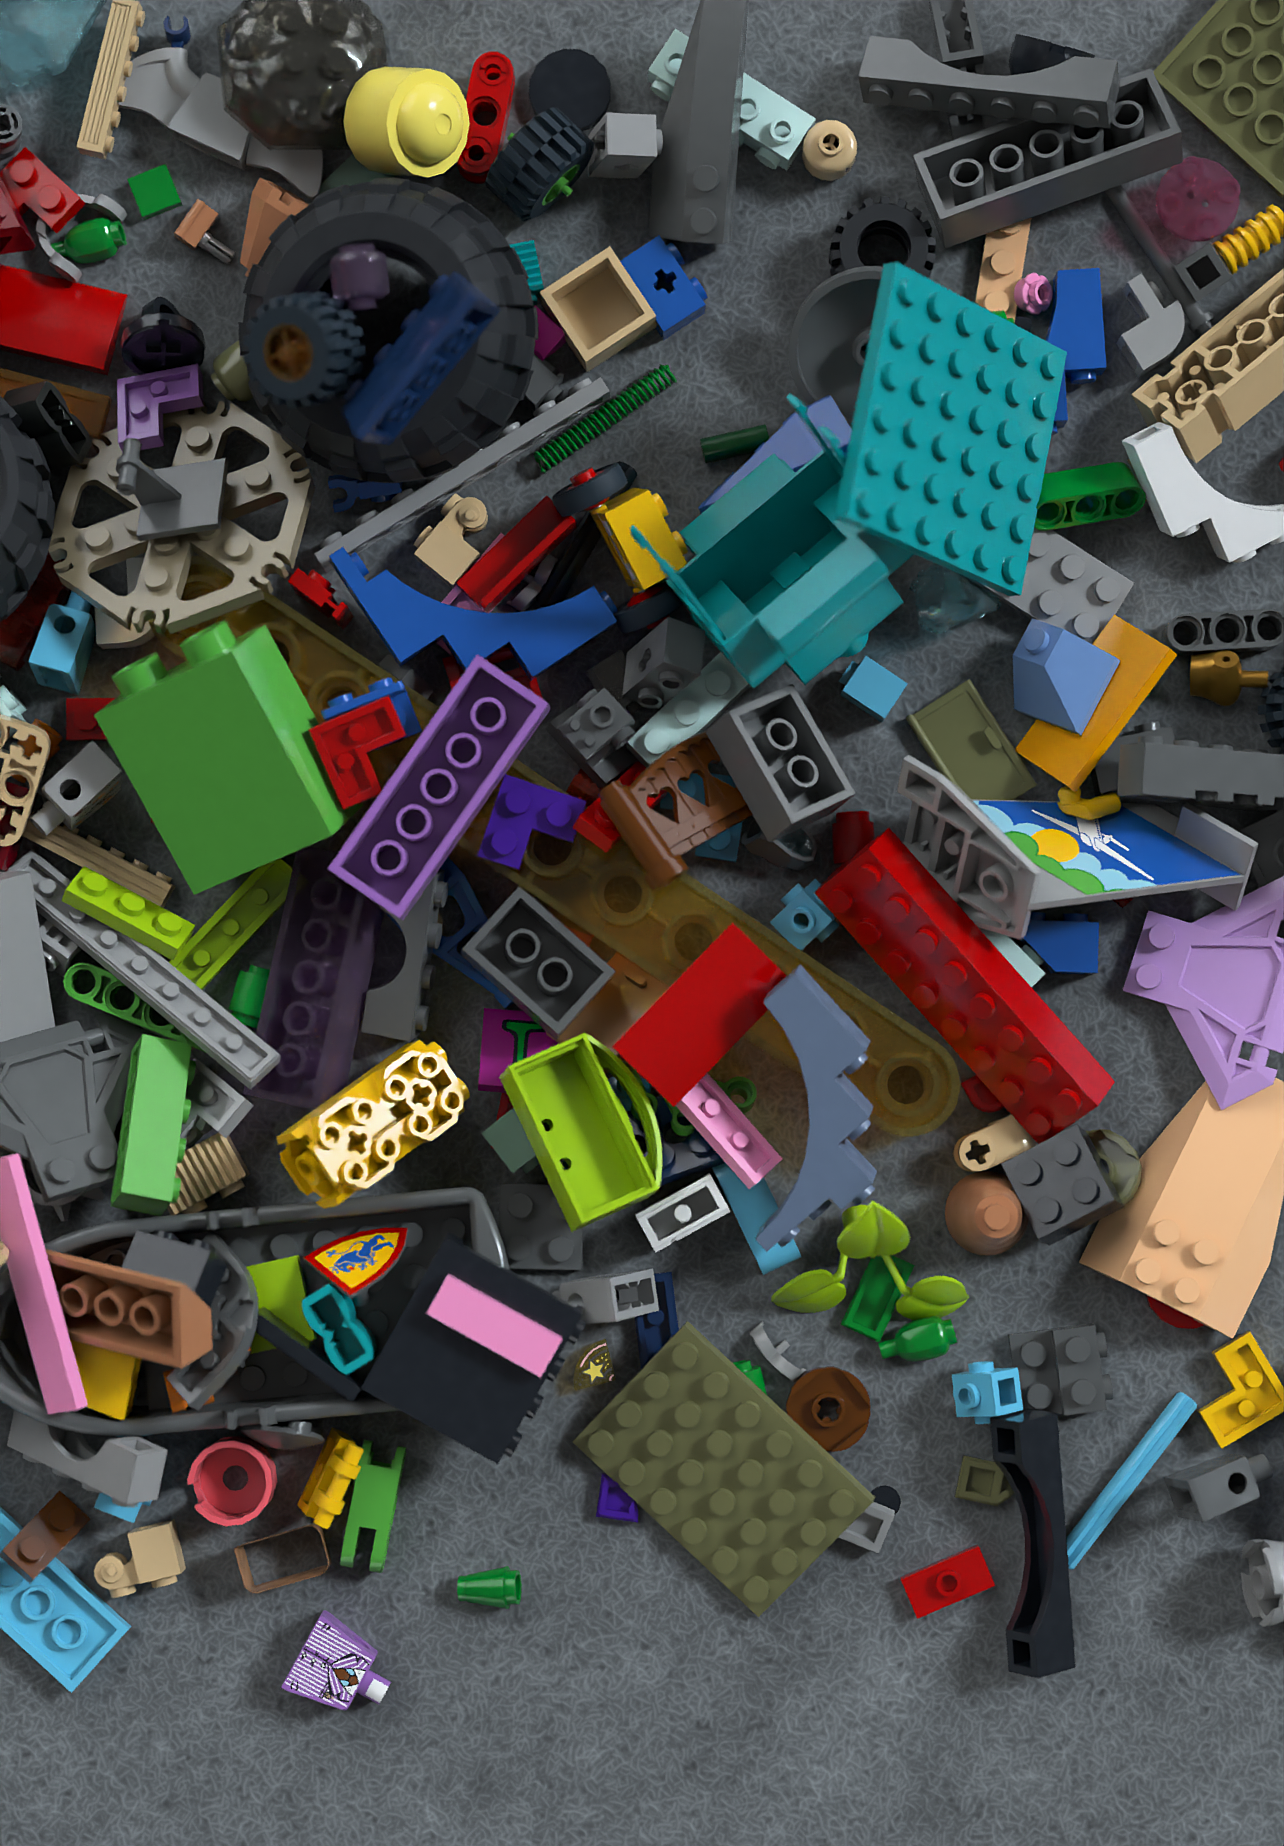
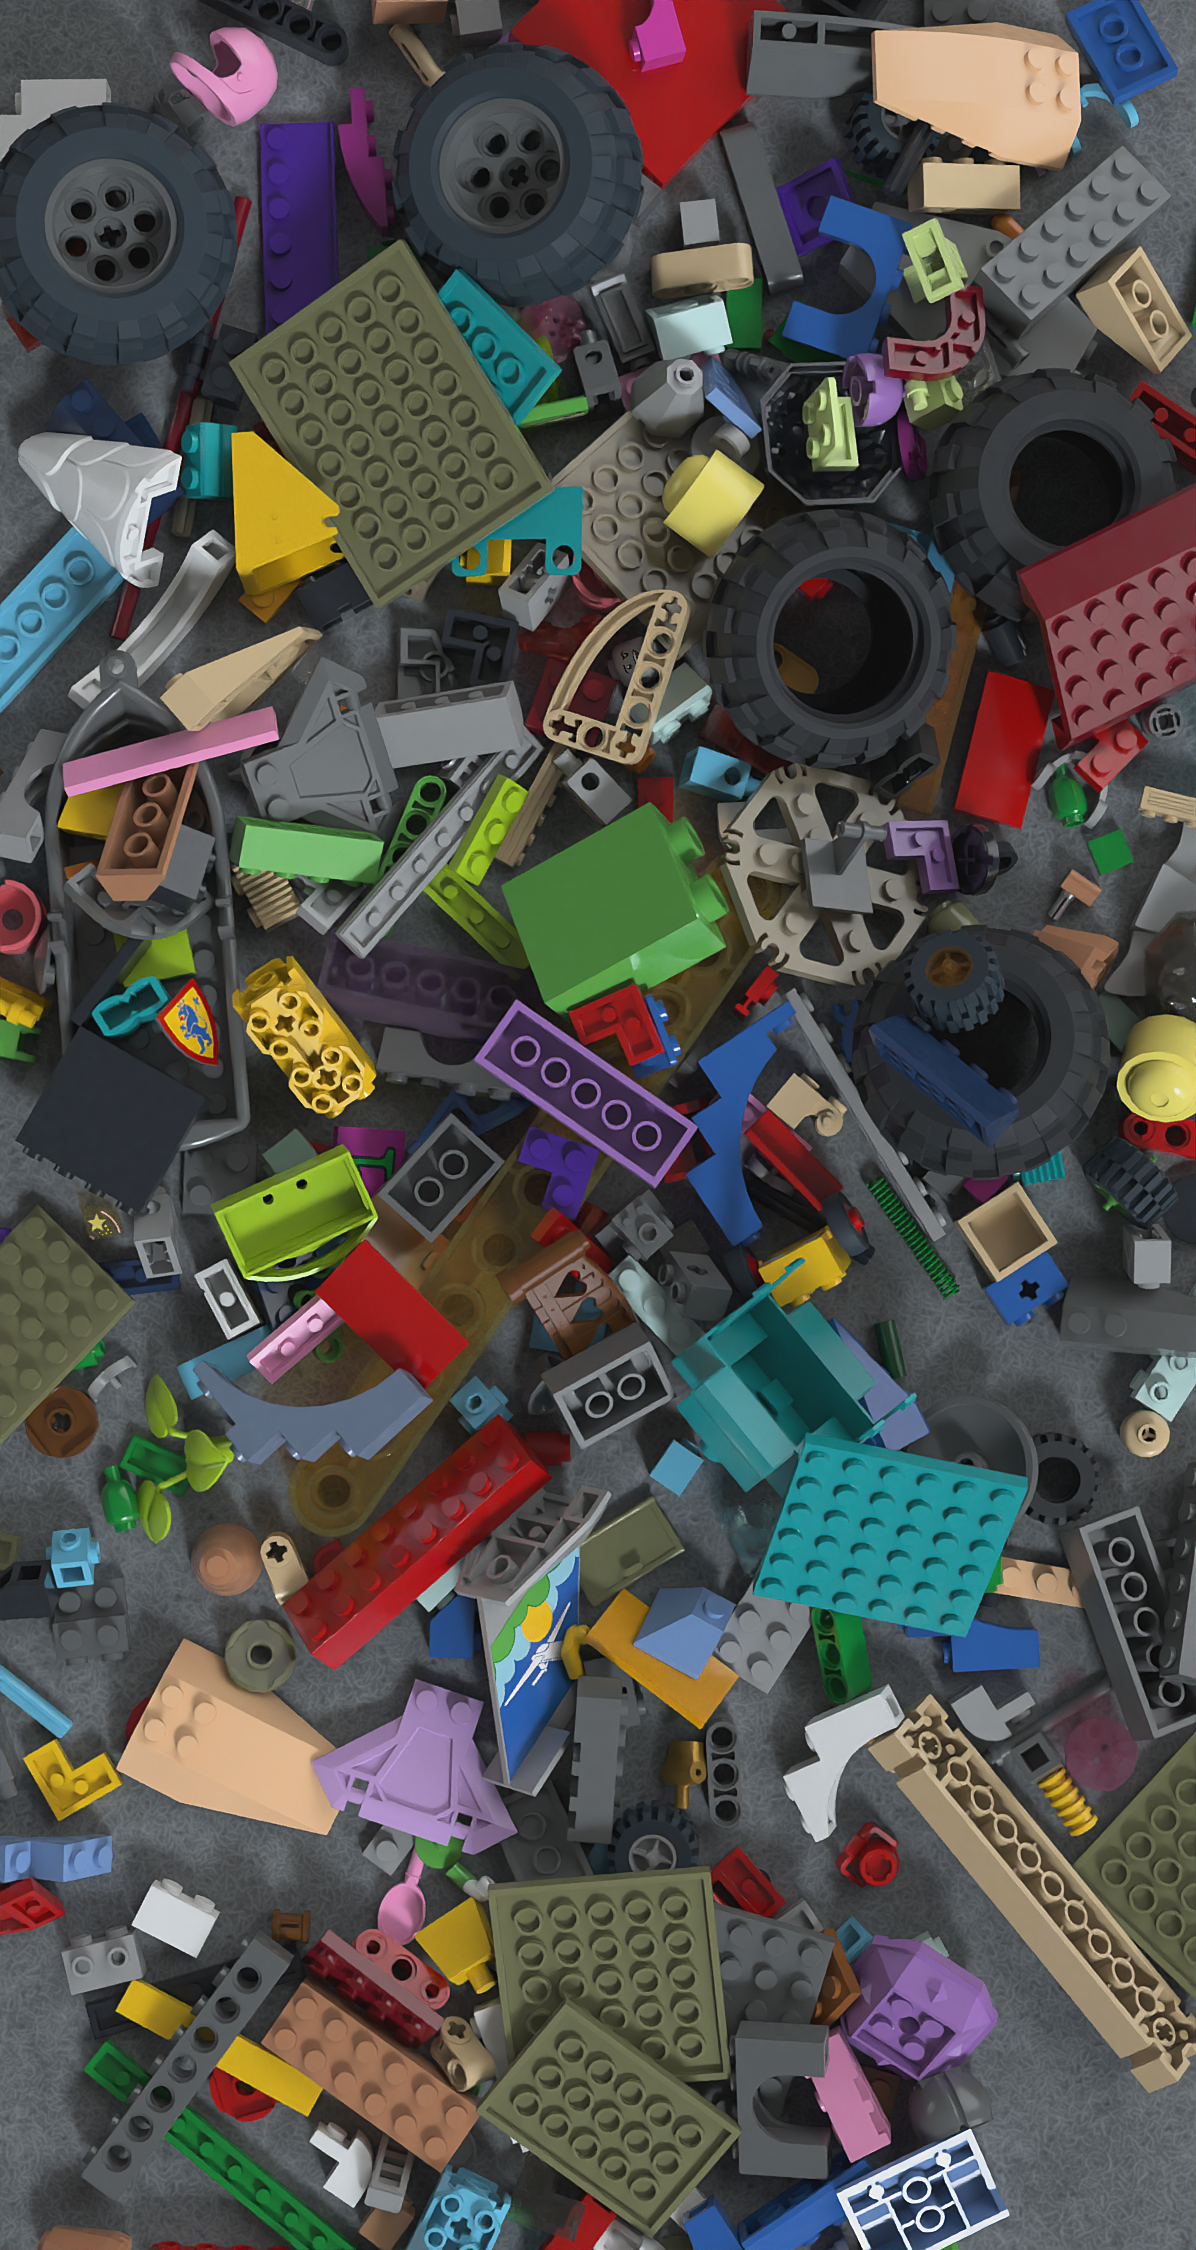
camera: 85 degrees right, 0 degrees up
(249, 995) = (417, 932): green brick -> none
(359, 276) = (1017, 1028): clear purple head -> none
(494, 1325) = (130, 1138): bright pink tile -> none
(1033, 294) = (1019, 1609): bright pink plate -> none
(1062, 1185) = (247, 1624): black brick -> none

